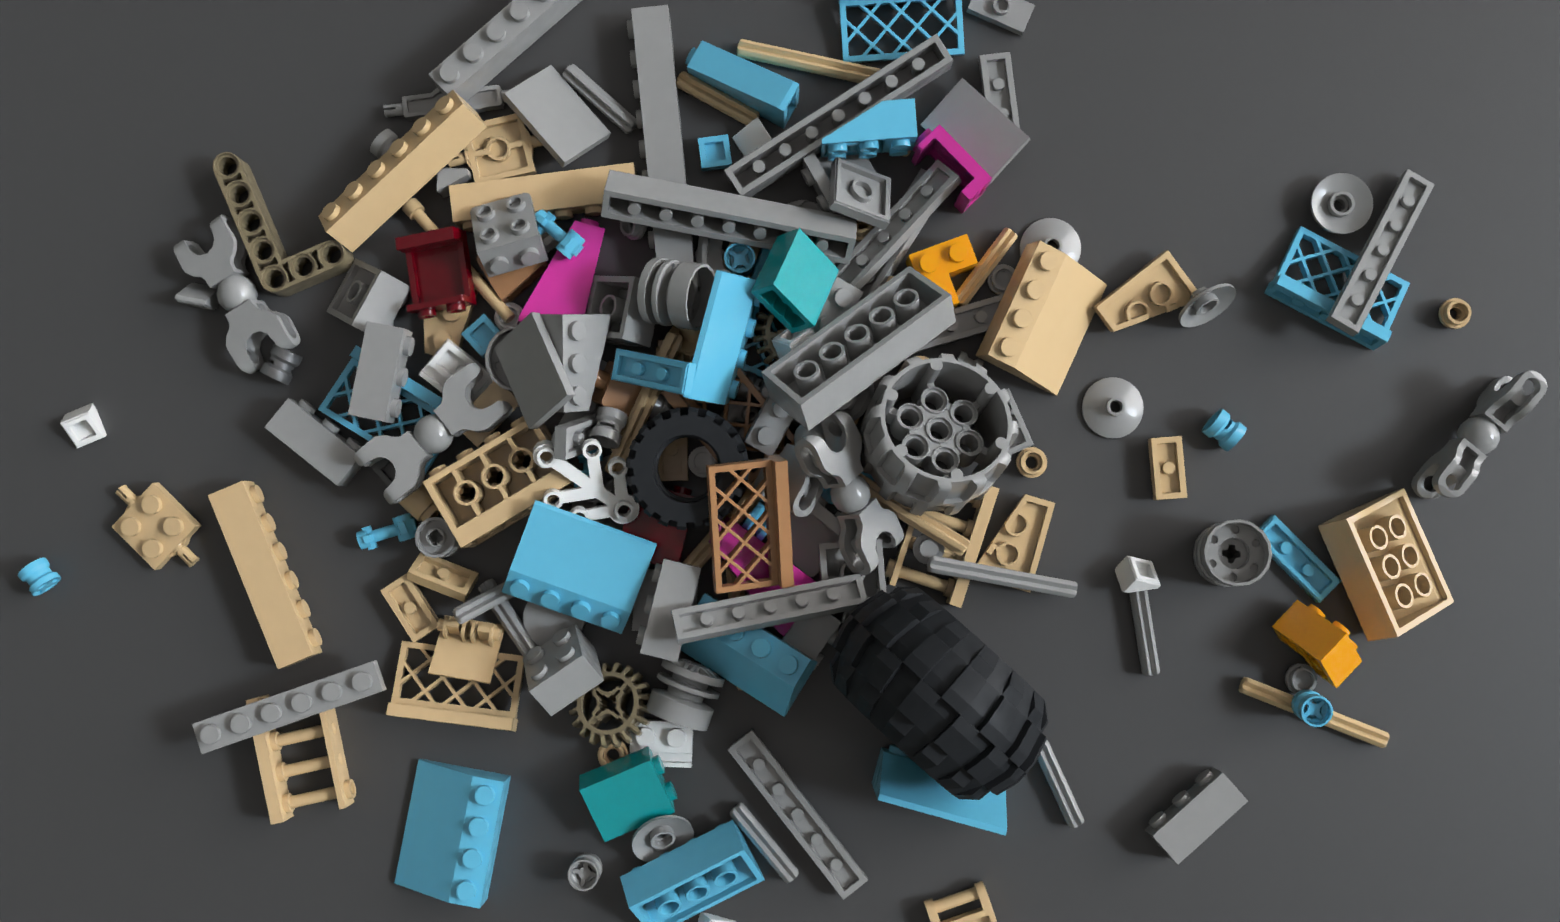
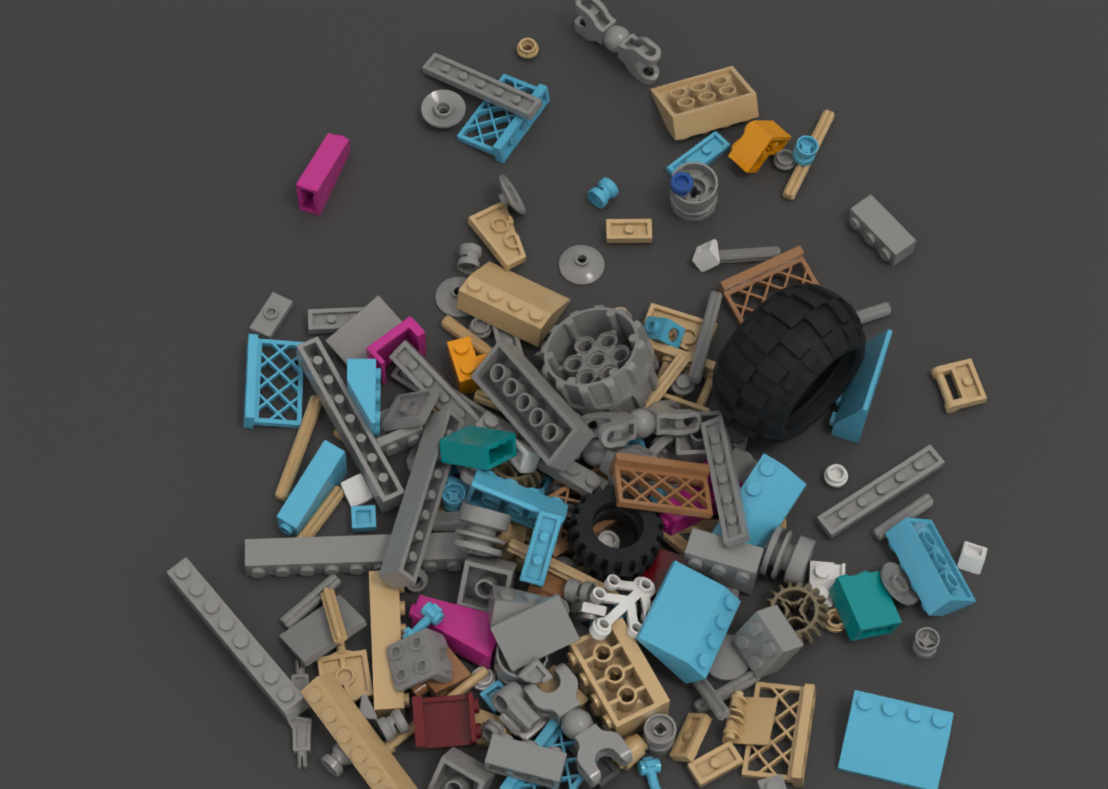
camera: 90 degrees left, 25 degrees down
(427, 205) = (388, 729): none -> light grey wheel
(428, 332) = (491, 727): none -> light grey plate
(457, 351) = (511, 701): none -> light grey piece
(490, 375) = (535, 672): none -> light grey tile
(567, 124) = (334, 616): none -> tan axle
(817, 754) = (835, 475): none -> white plate
(1007, 513) = (658, 329): none -> medium azure bracket
(1105, 256) = (469, 254): none -> light grey wheel
(1113, 651) = (758, 275): none -> medium nougat fence
(1222, 49) = (322, 173): none -> dark pink slope
(1233, 535) = (681, 183): none -> blue tile

